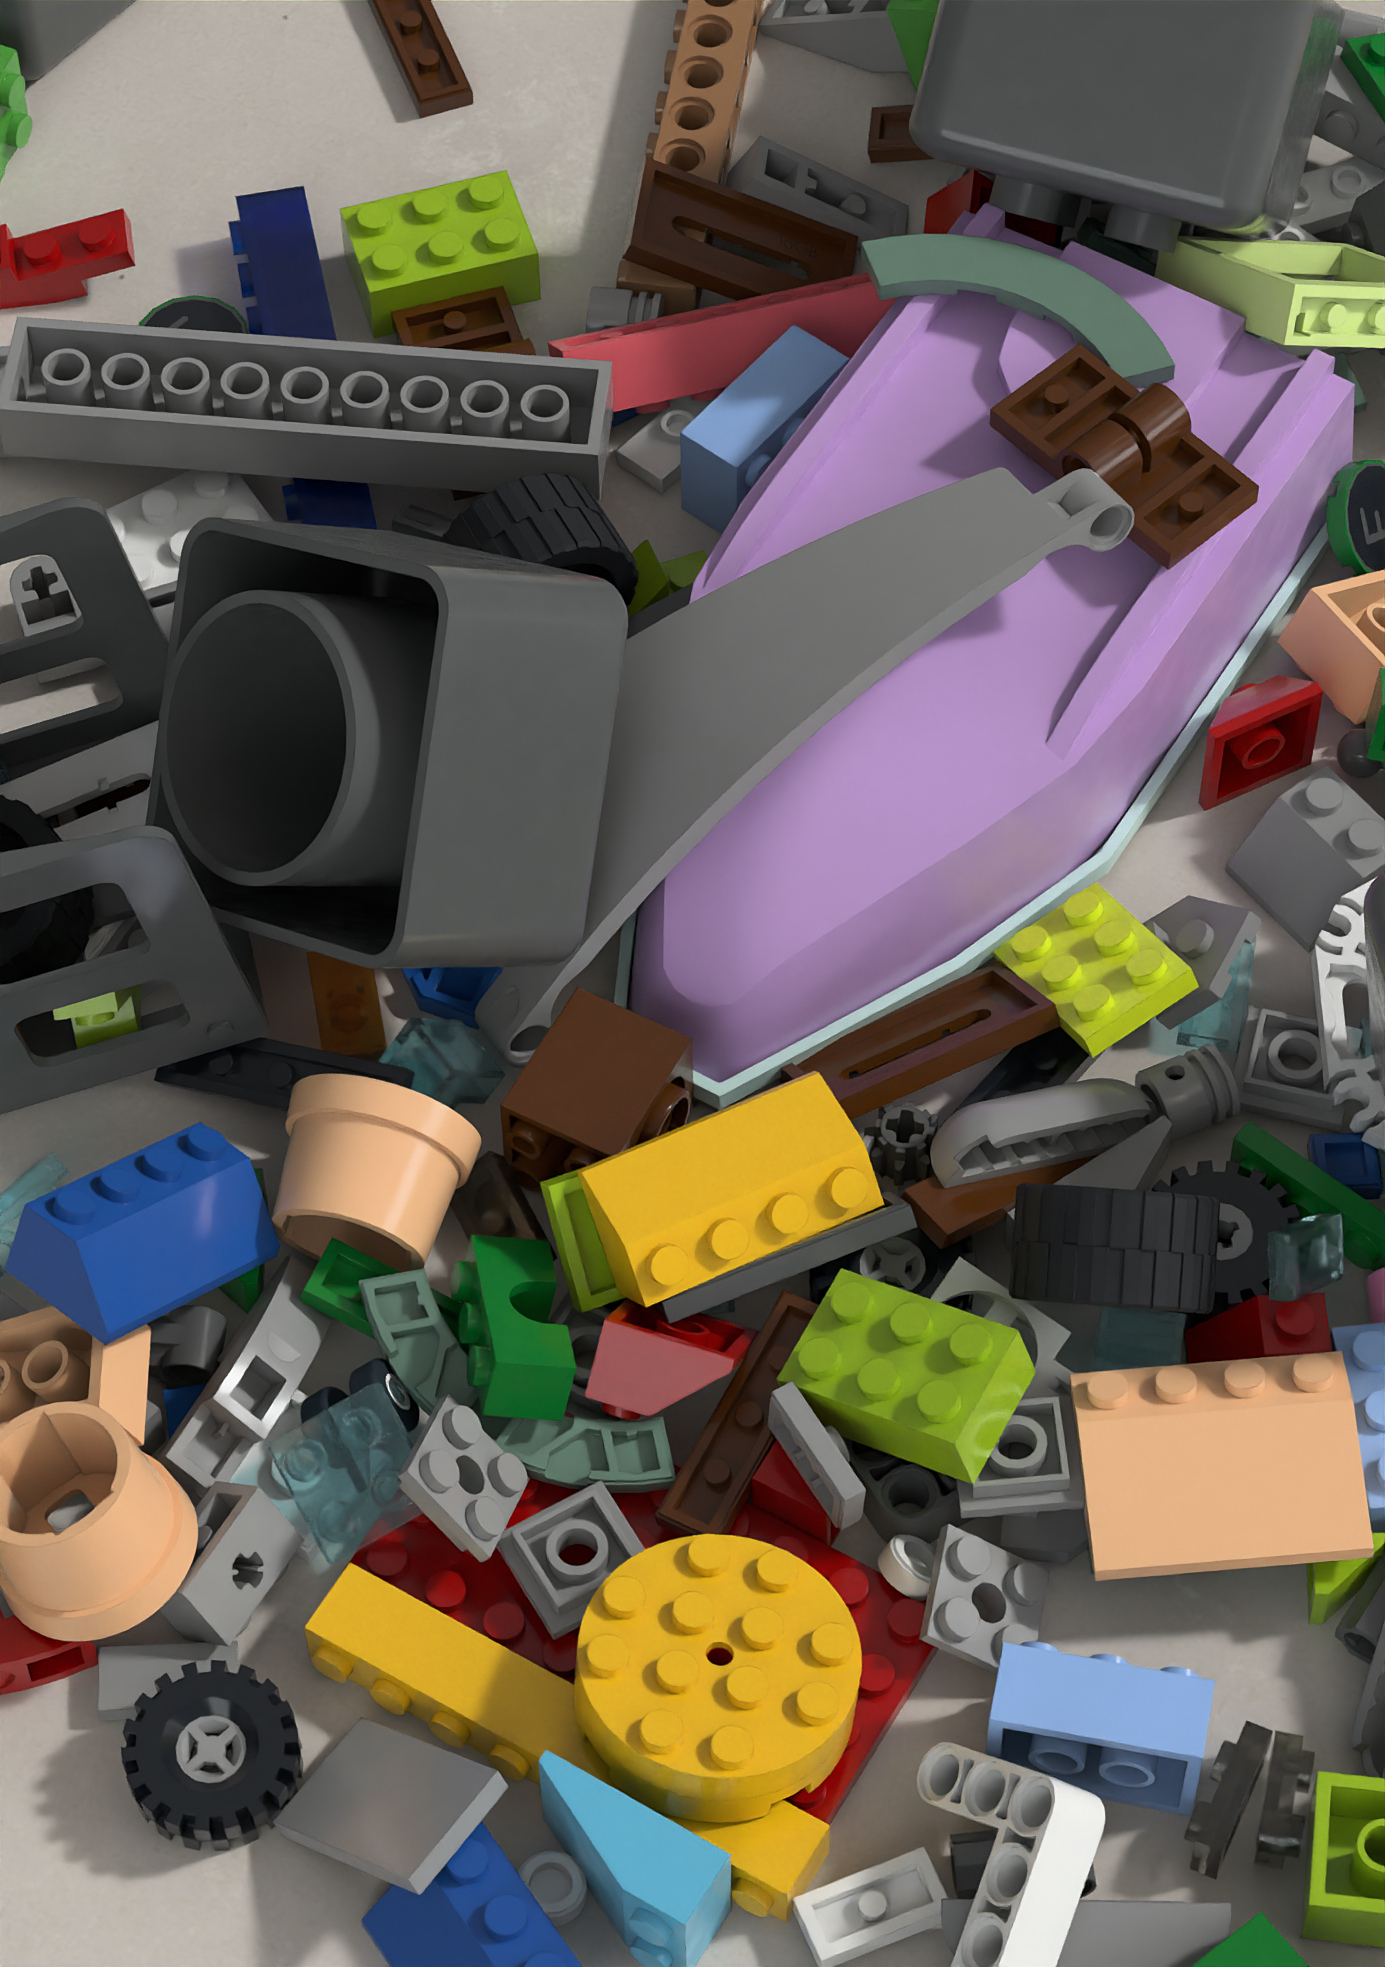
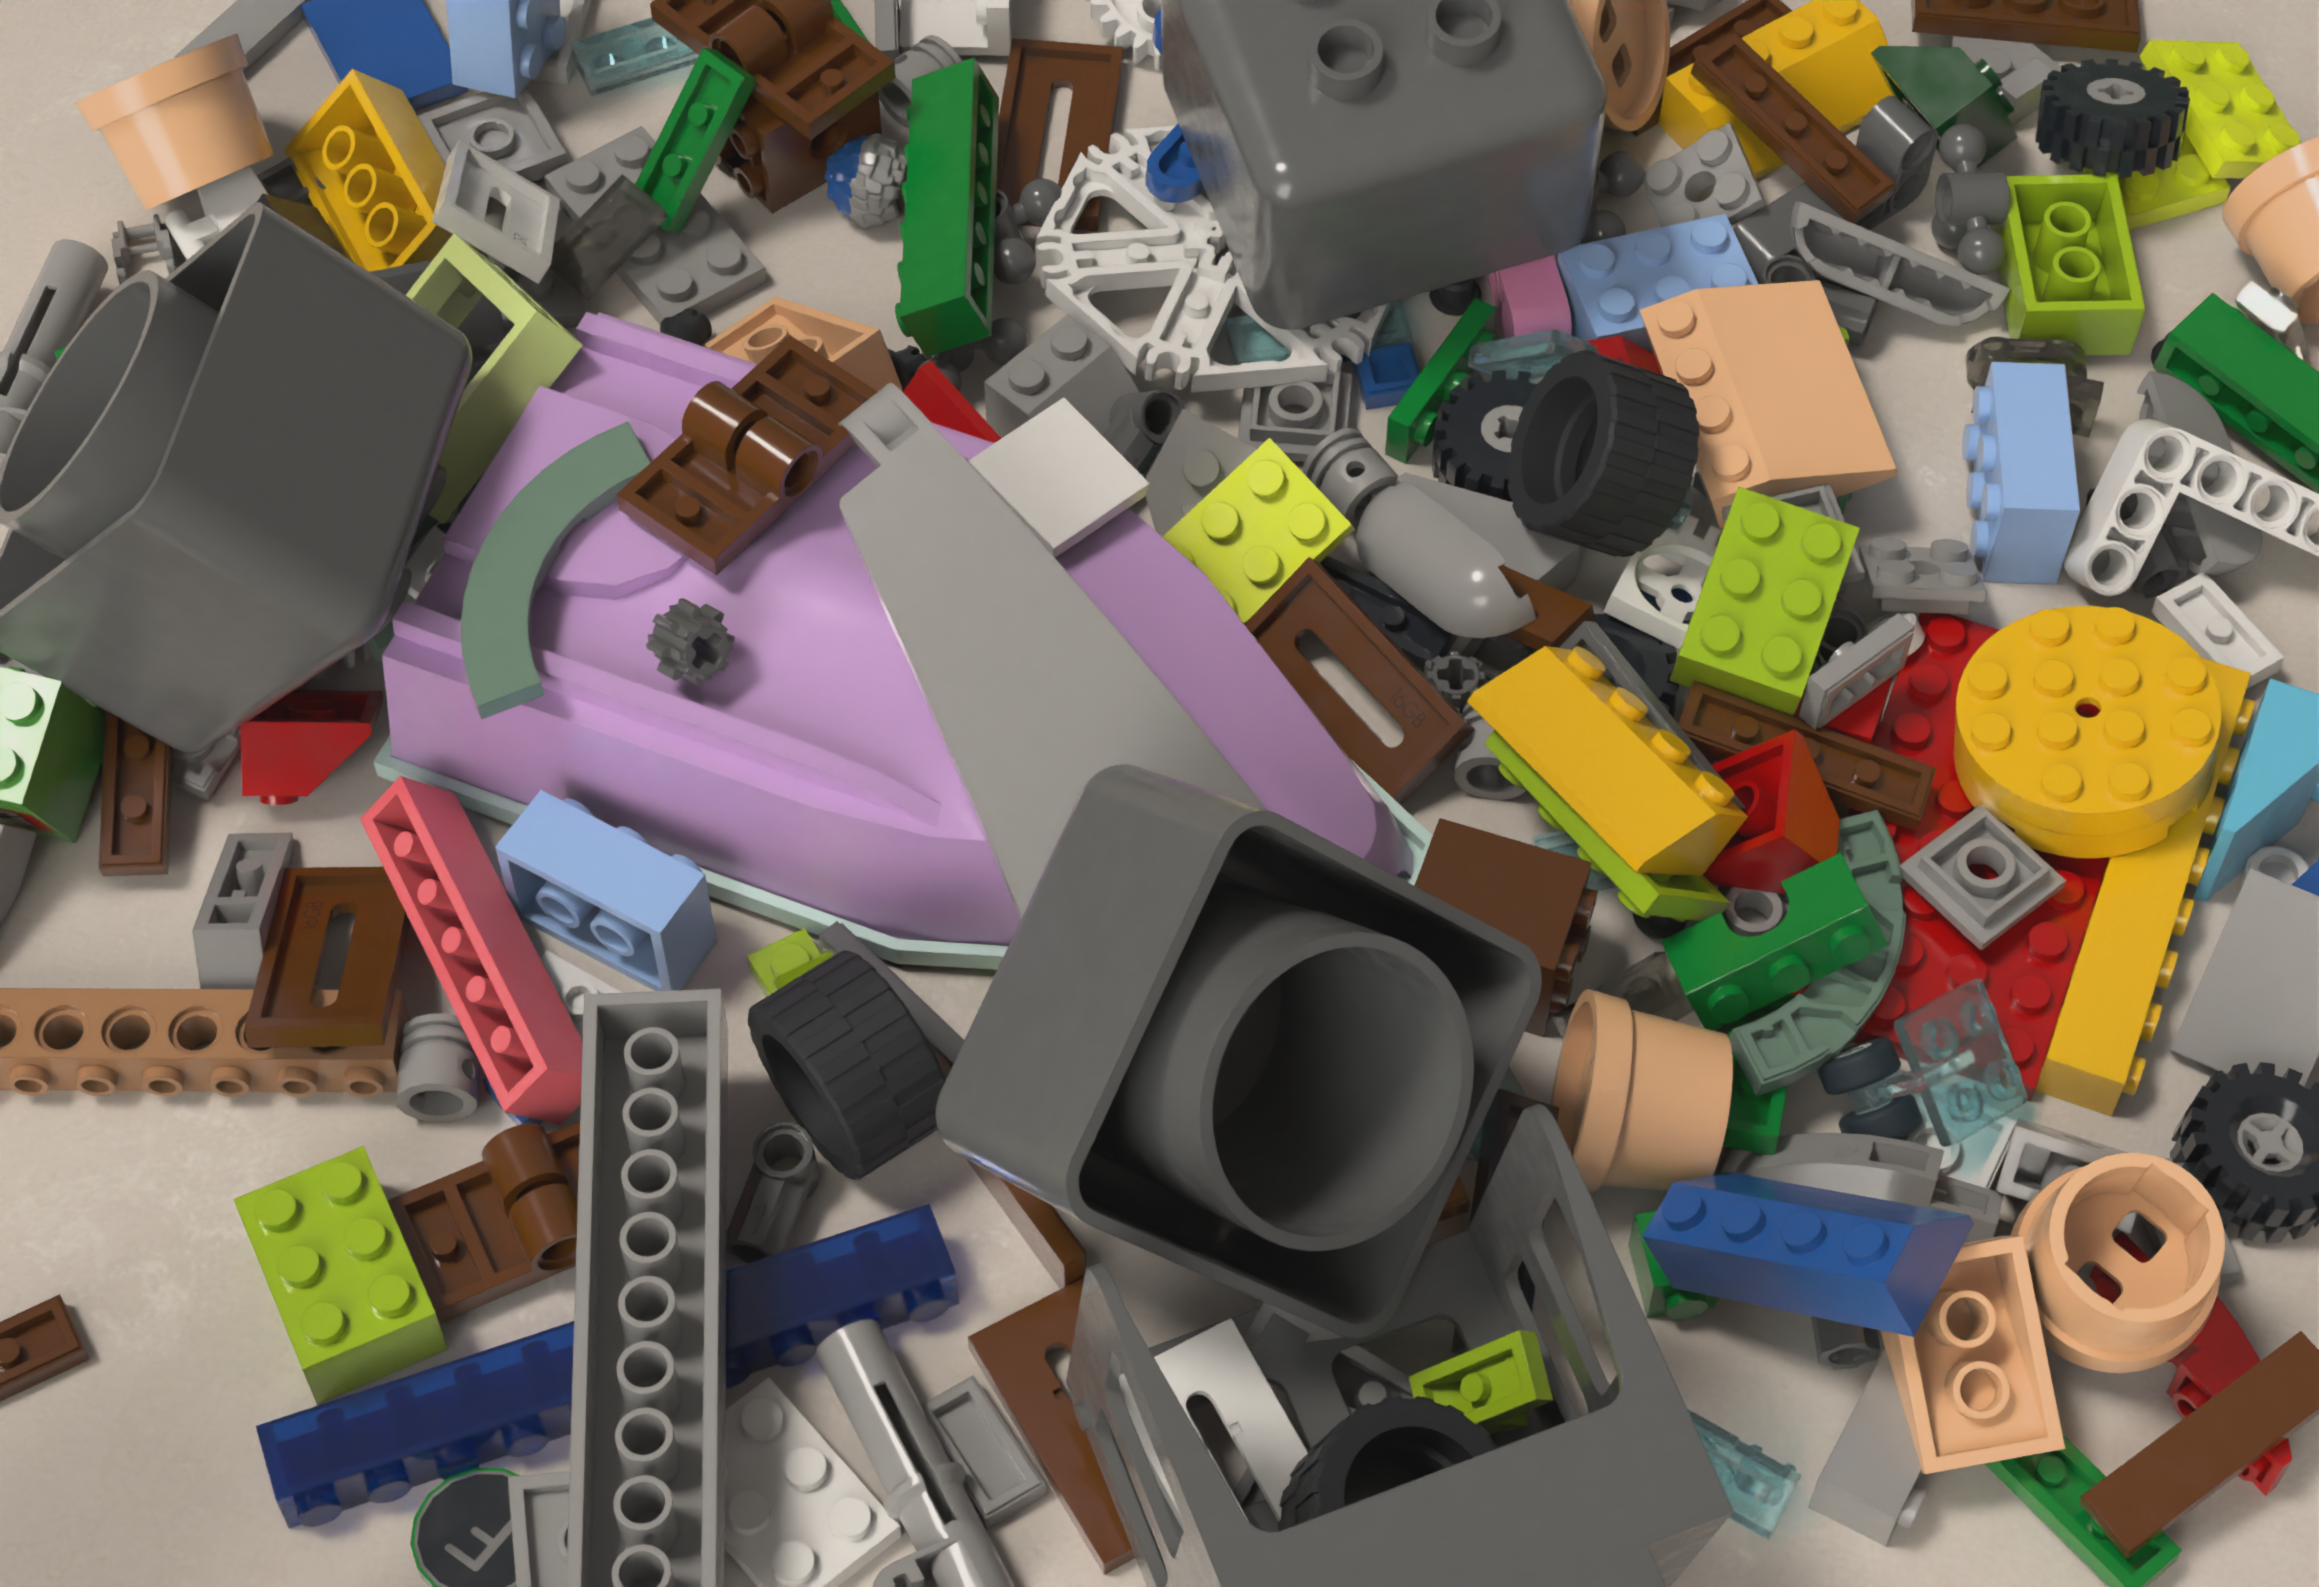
camera: 100 degrees left, 0 degrees up
(463, 1478) = (1954, 960): light grey piece -> none
(909, 395) = (690, 642): none -> dark grey gear
(1074, 701) = (1060, 476): none -> white tile
(1241, 886) = (1129, 429): none -> dark grey piece

